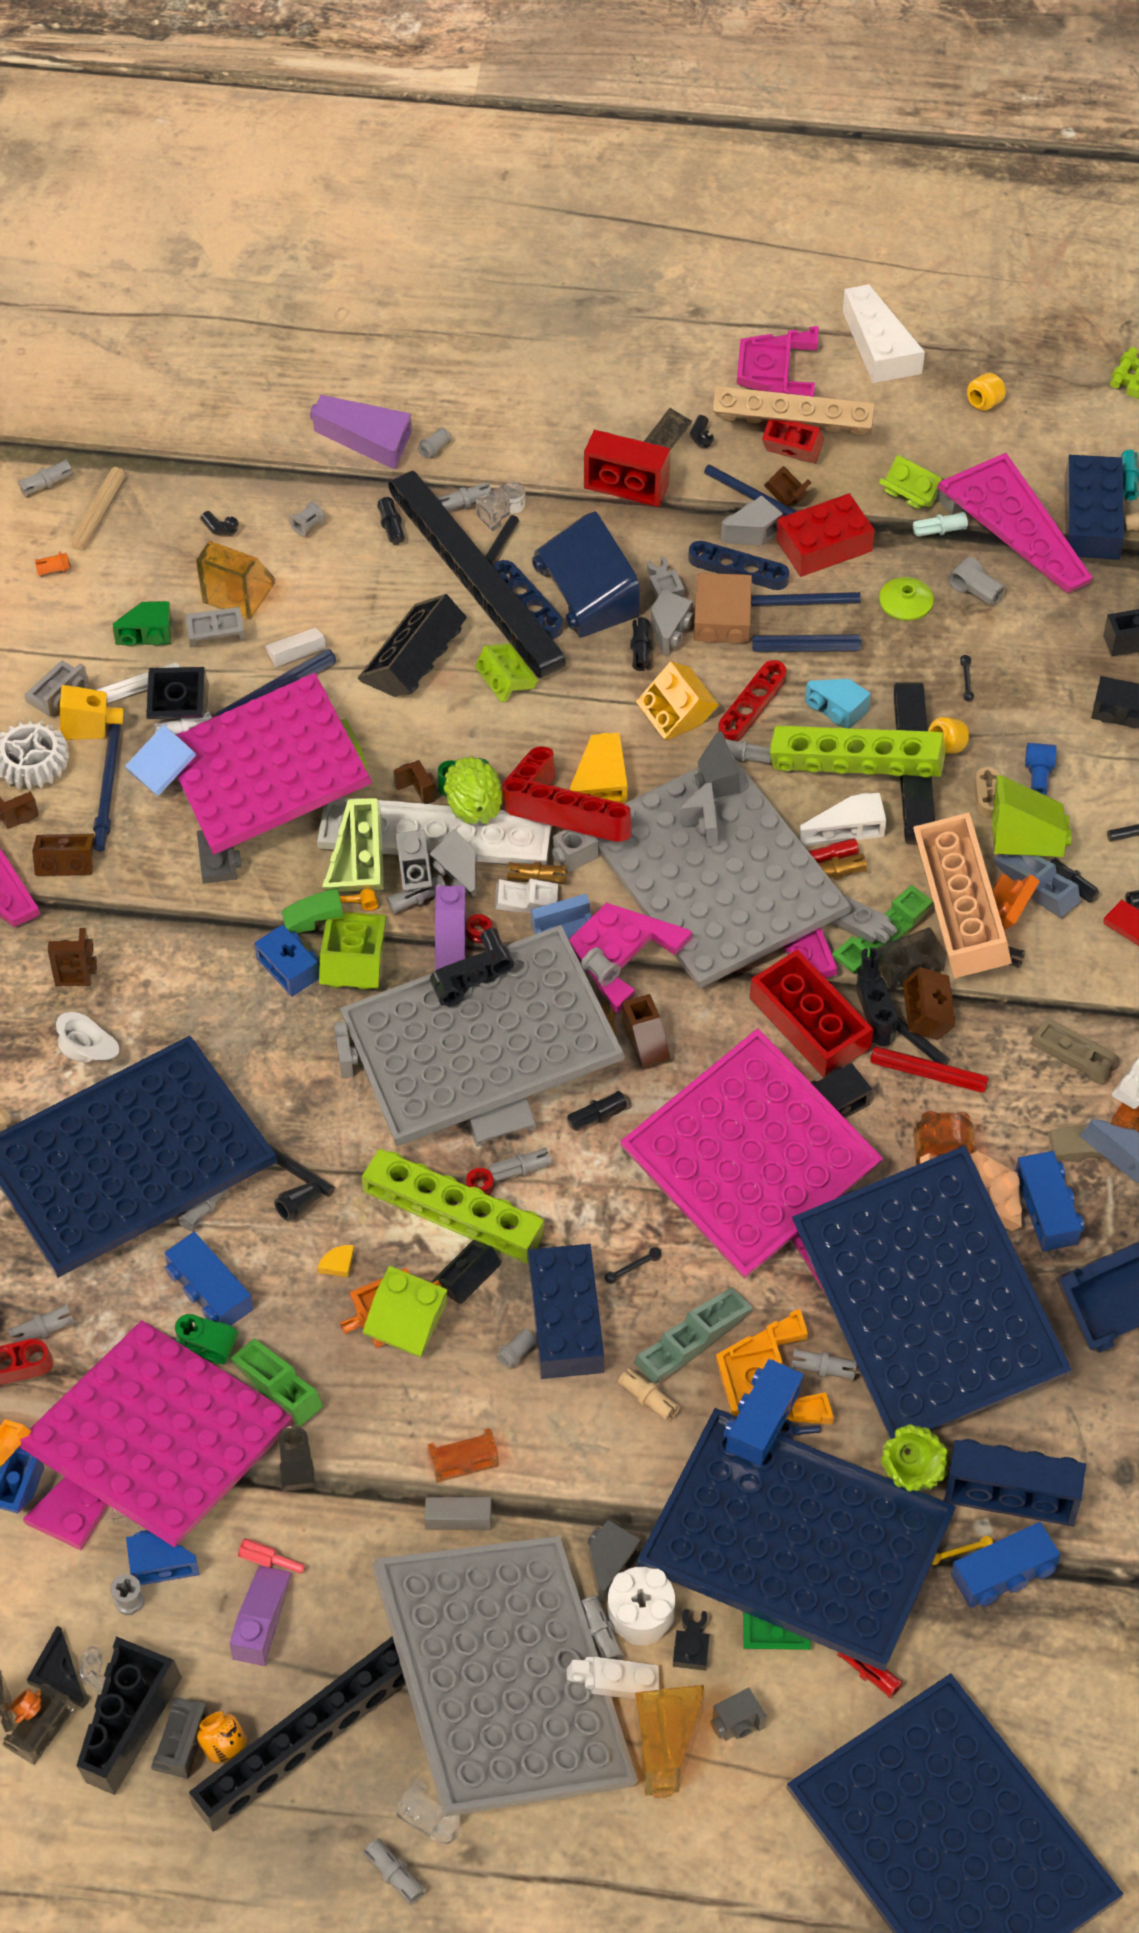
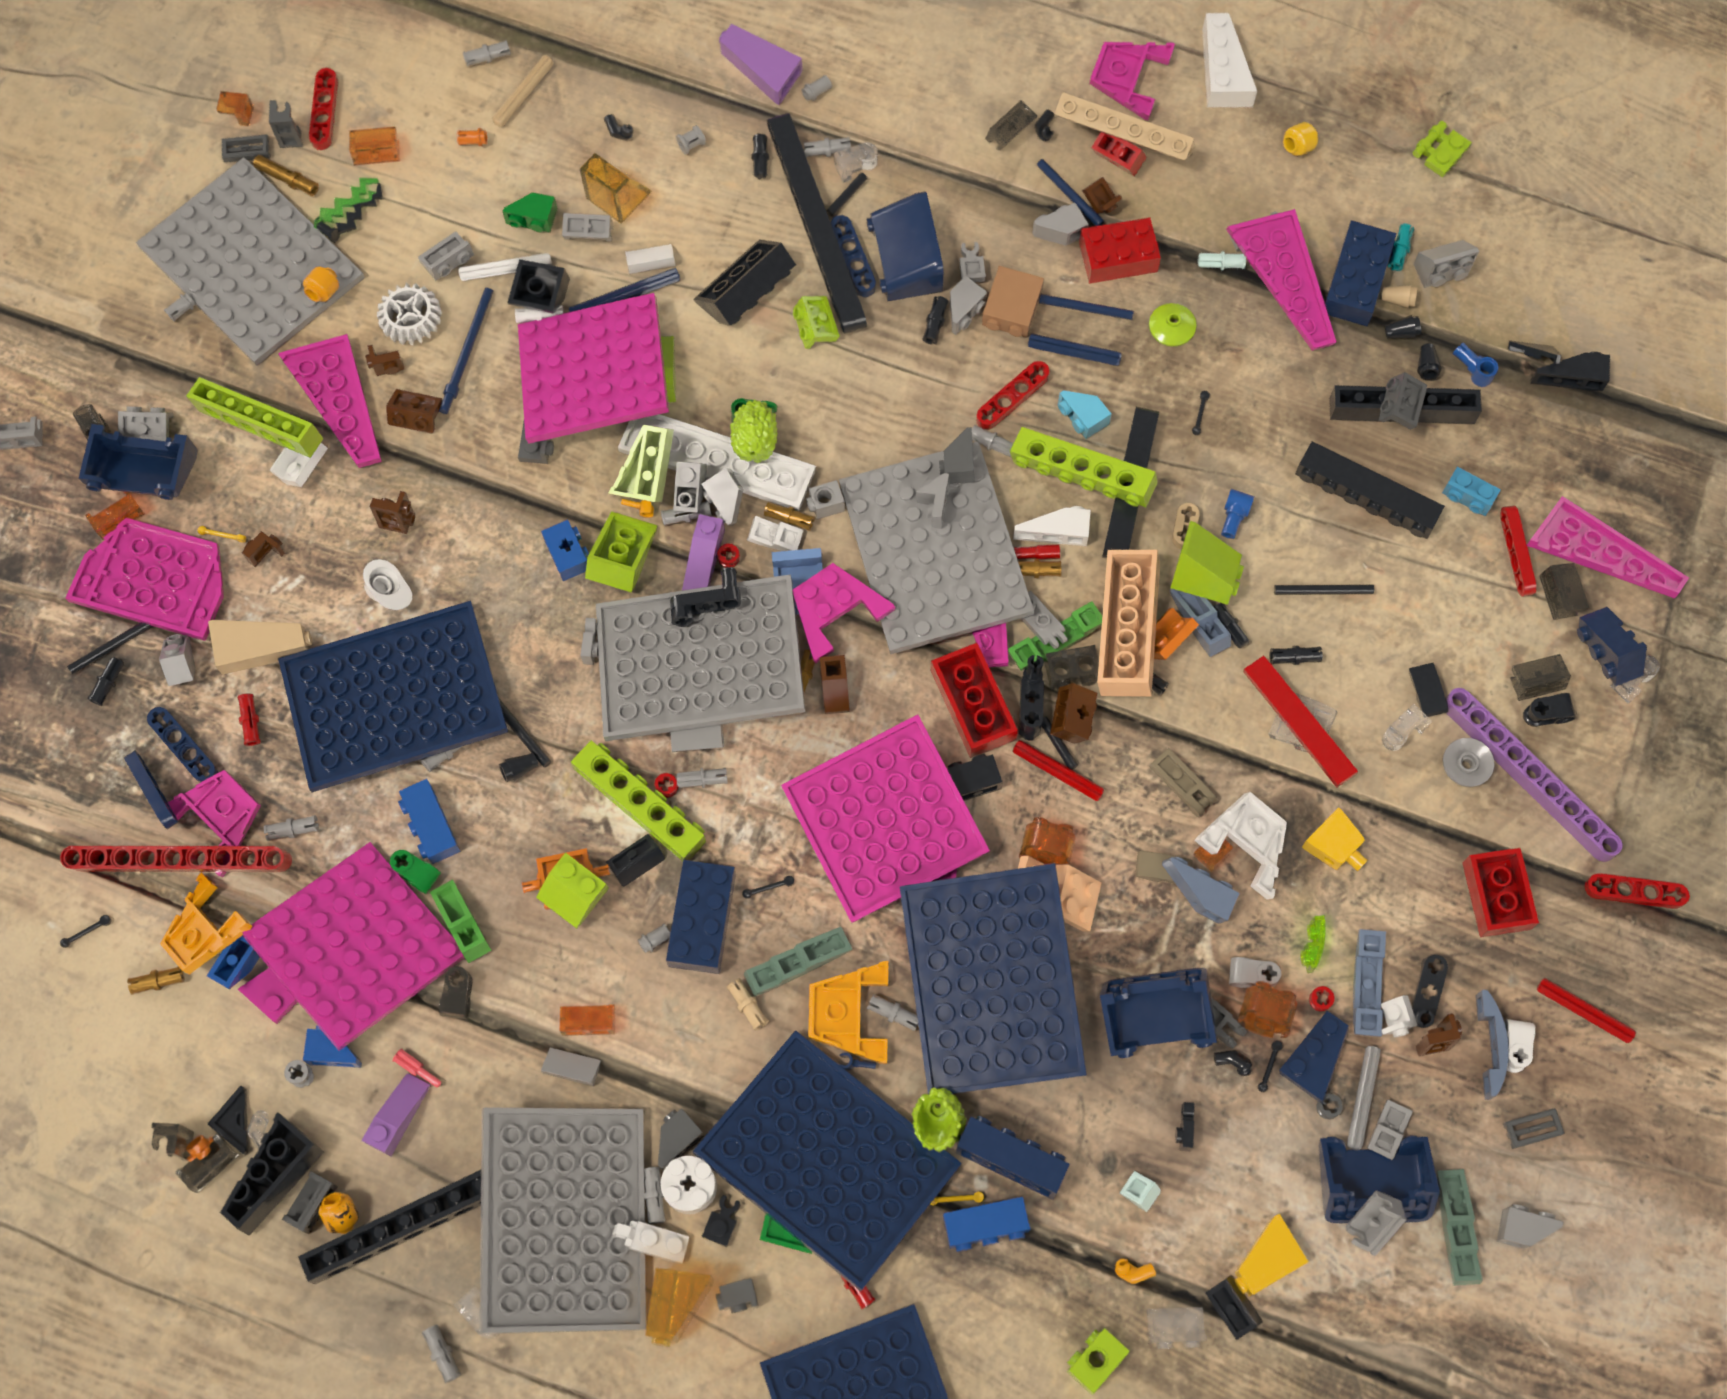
camera: 15 degrees right, 15 degrees up
(86, 713) = (460, 287): yellow torso -> none
(160, 760) = (509, 345): light blue slope -> none
(320, 906) = (595, 509): bright green slope -> none
(337, 1261) = (536, 827): yellow tile -> none
(415, 775) = (712, 401): reddish brown bracket -> none
(531, 797) = (798, 449): red beam -> none
(597, 1111) = (776, 744): black axle -> none
(600, 966) = (809, 623): light grey bush -> none
(602, 769) = (866, 435): yellow slope -> none
(626, 468) = (968, 150): red brick -> none
(676, 701) = (949, 382): yellow slope -> none
(740, 561) = (1041, 259): dark blue beam -> none
(763, 1411) = (829, 1047): blue brick -> none
(912, 482) = (1209, 215): lime bracket -> none
(954, 731) = (1167, 466): yellow head -> none
(971, 577) = (1233, 319): light grey piece -> none
(1049, 1201) = (1119, 913): blue brick -> none

